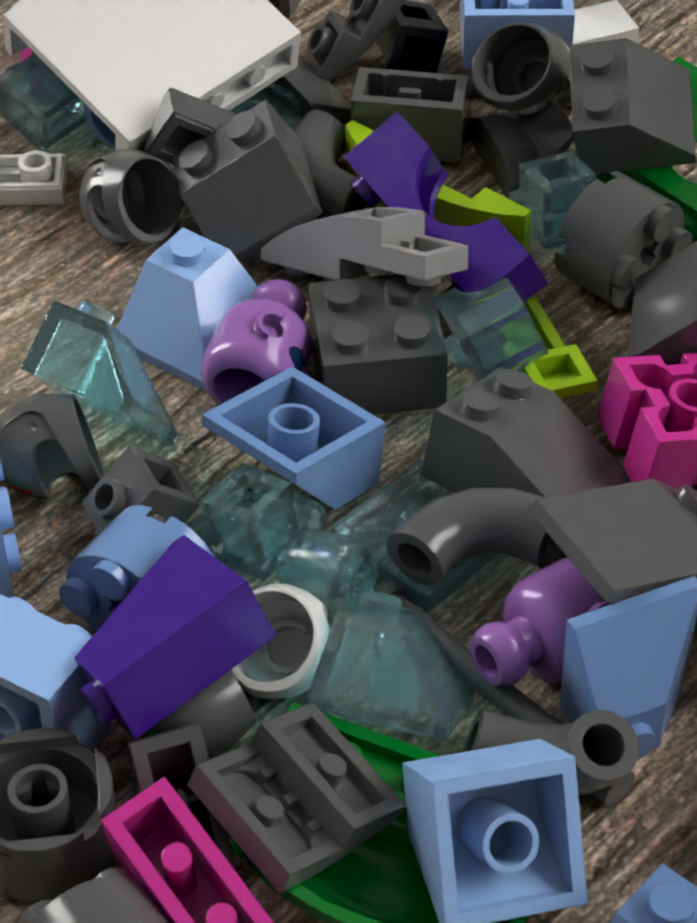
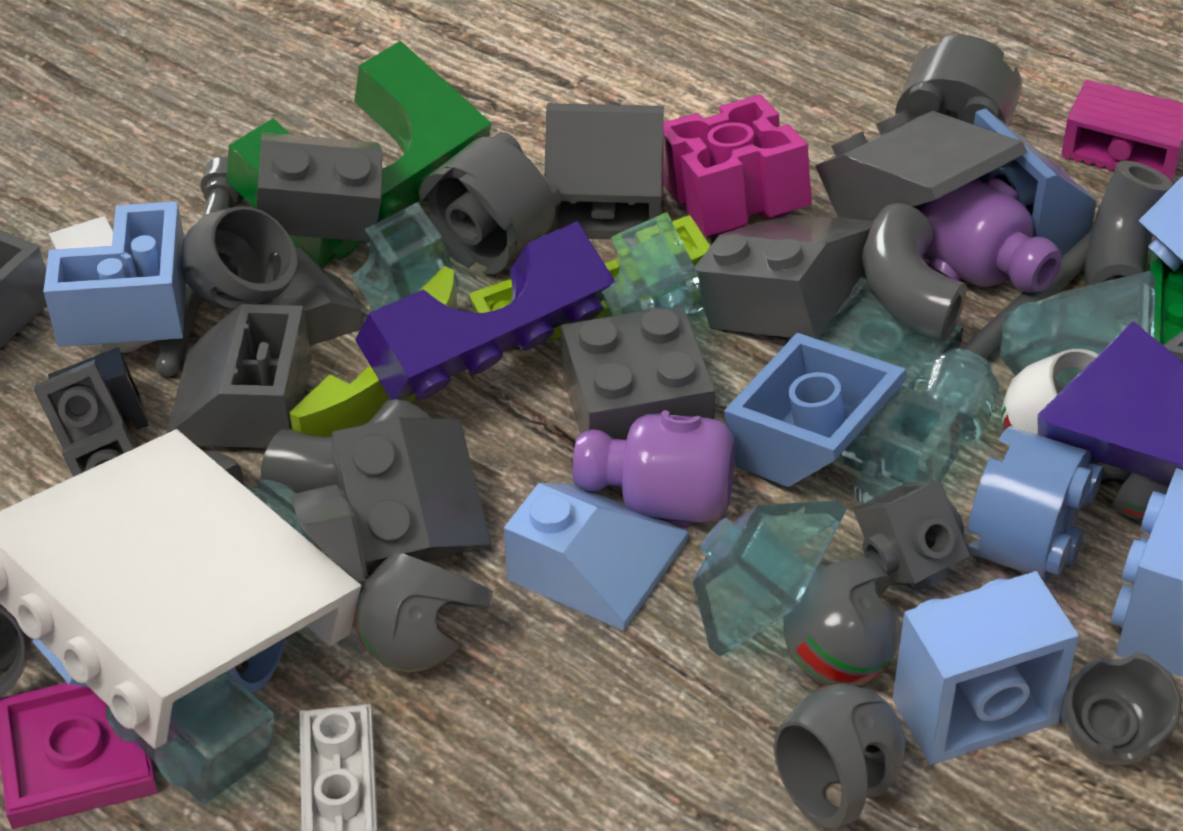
camera: 95 degrees left, 0 degrees up
(367, 243) = (516, 383): light grey slope -> none

